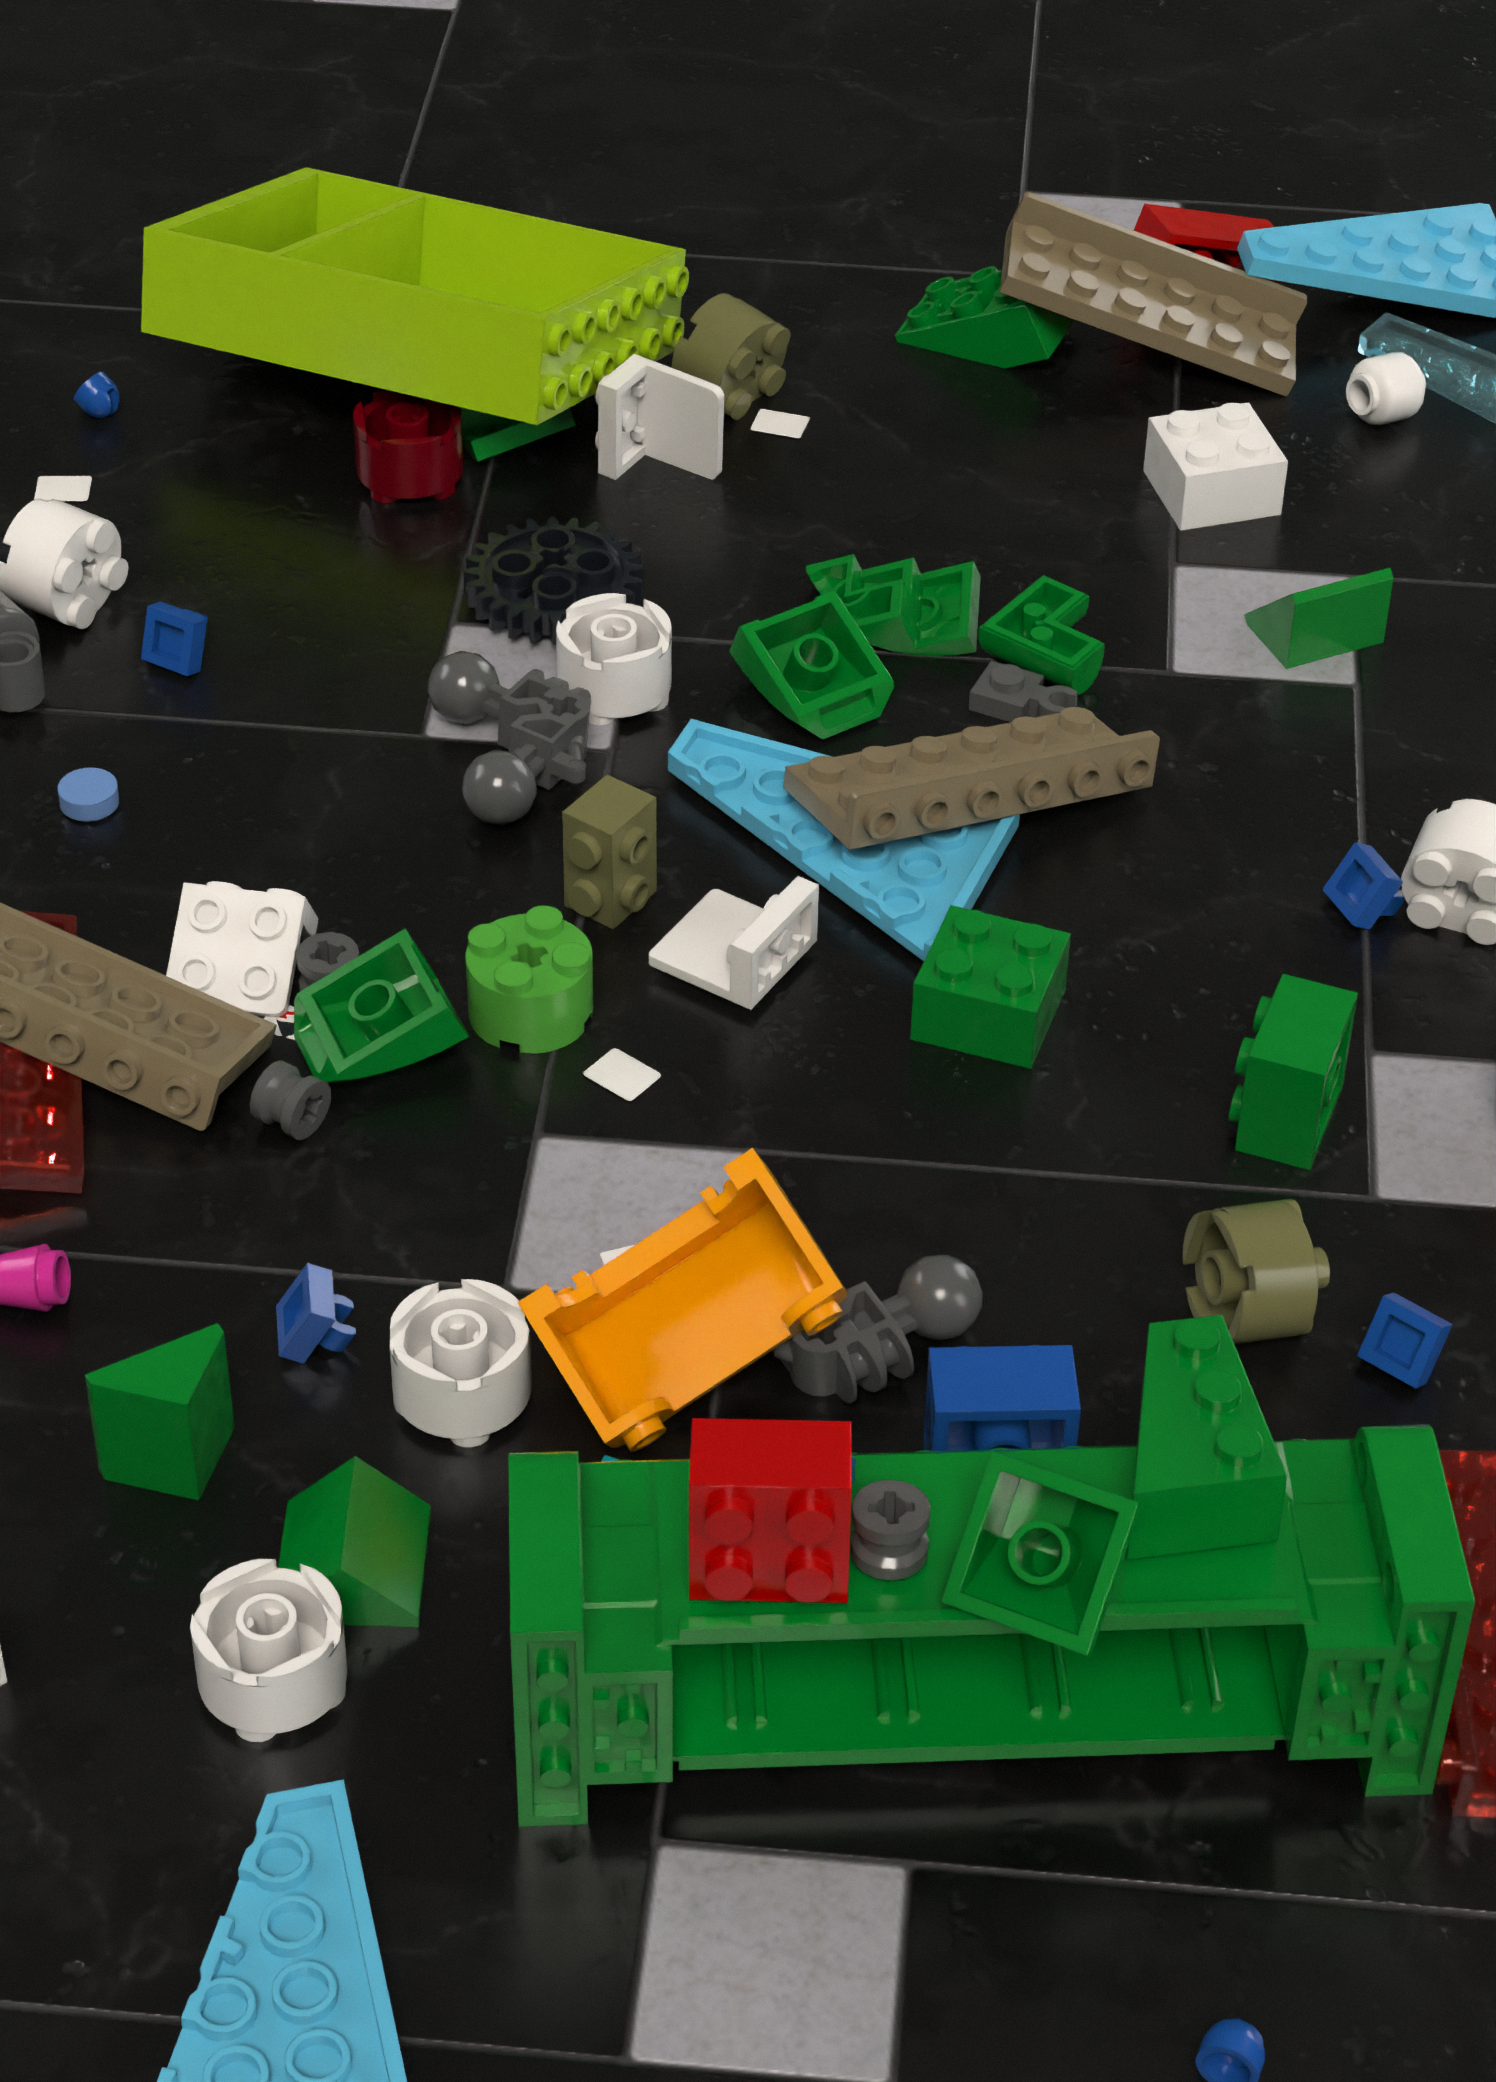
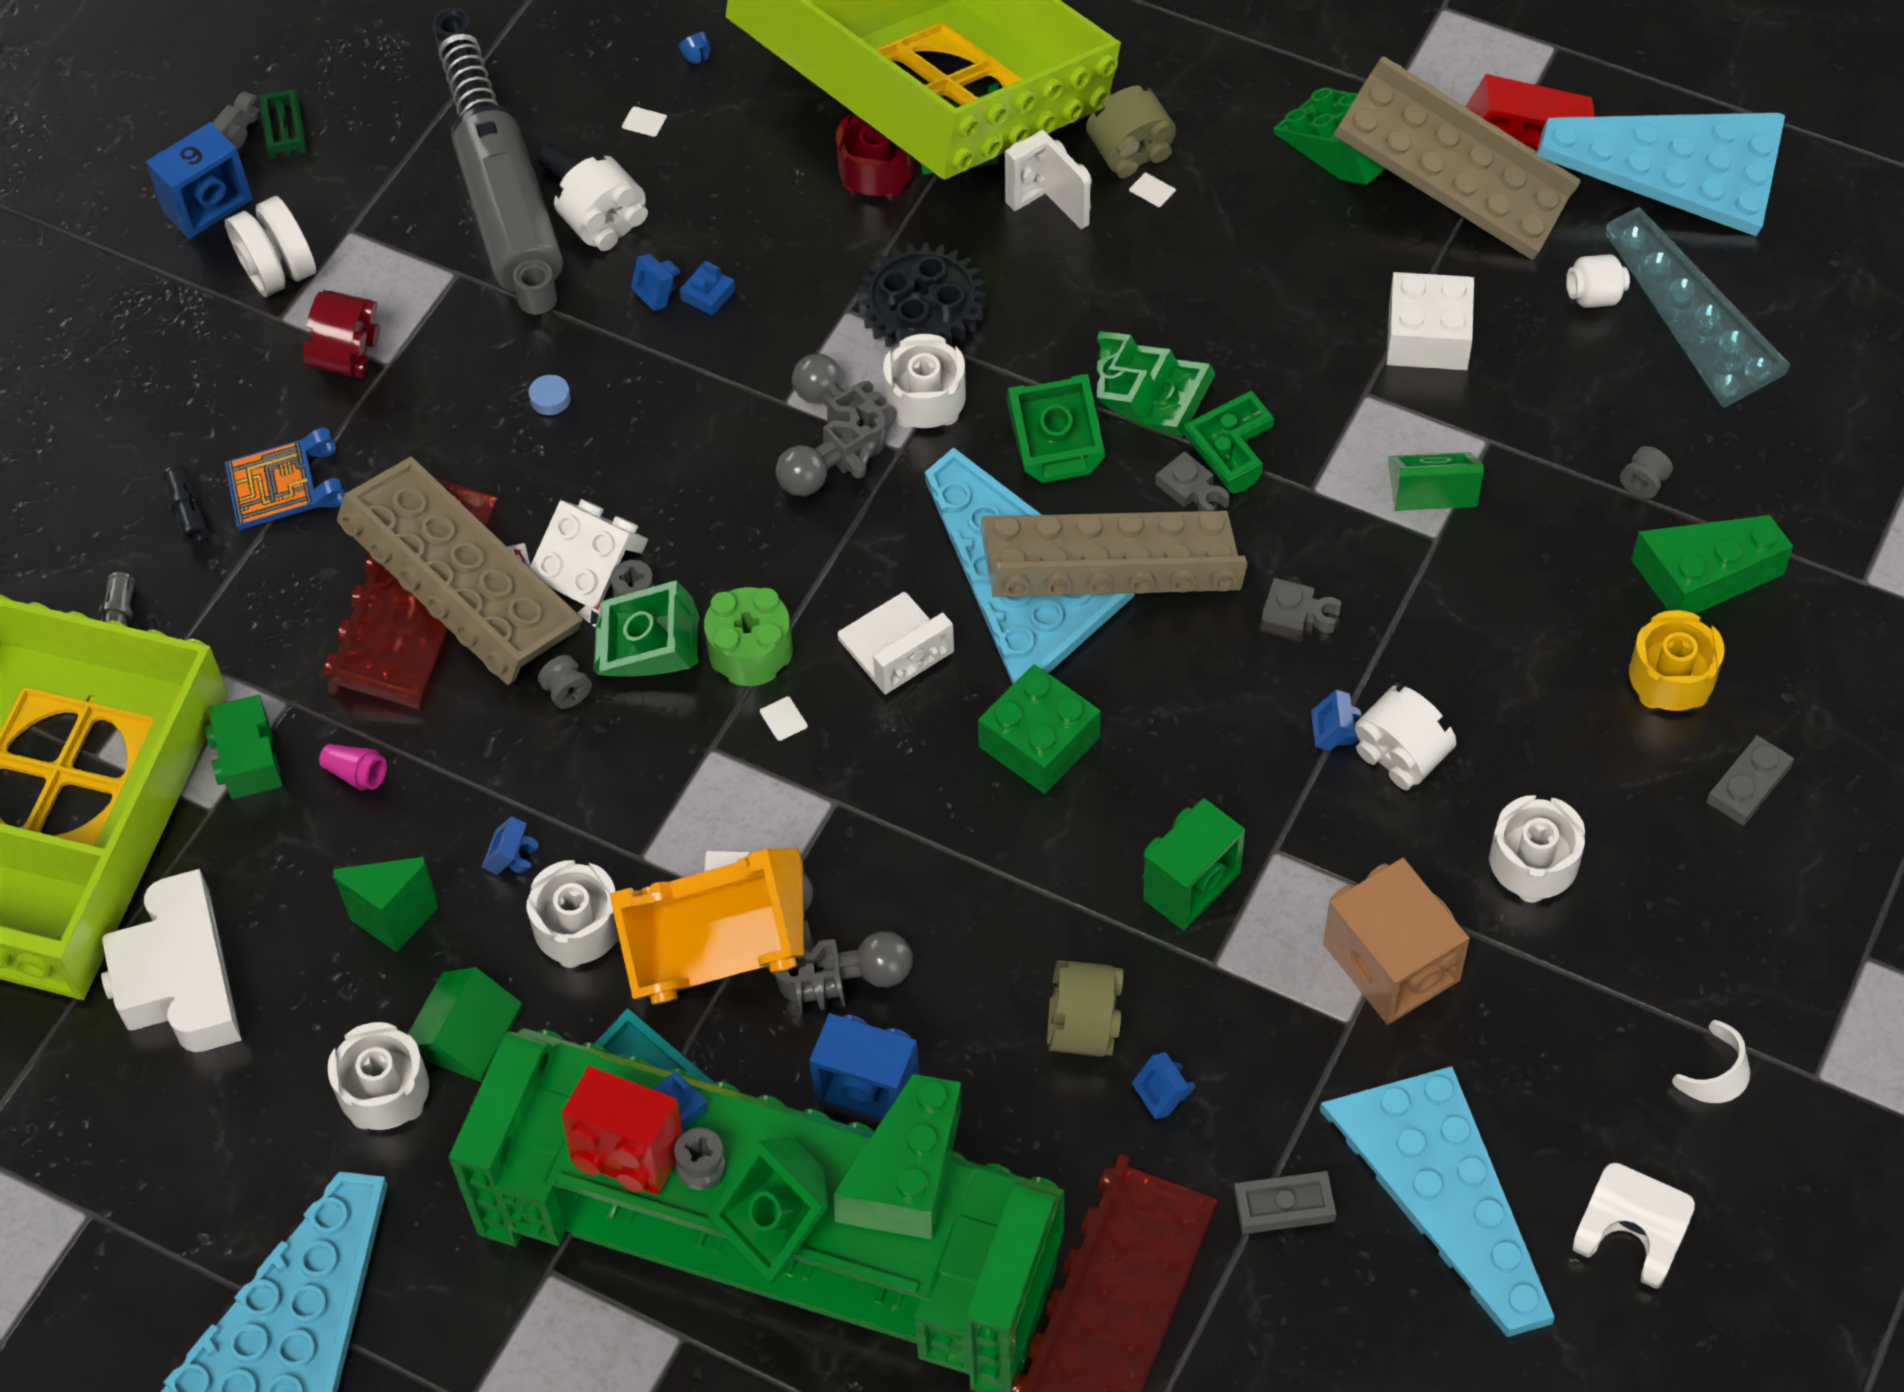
camera: 25 degrees right, 15 degrees up
(251, 633) = (707, 288): none -> blue tile
(610, 851) = (839, 551): olive brick -> none
(1232, 789) = (1294, 605): none -> dark grey plate

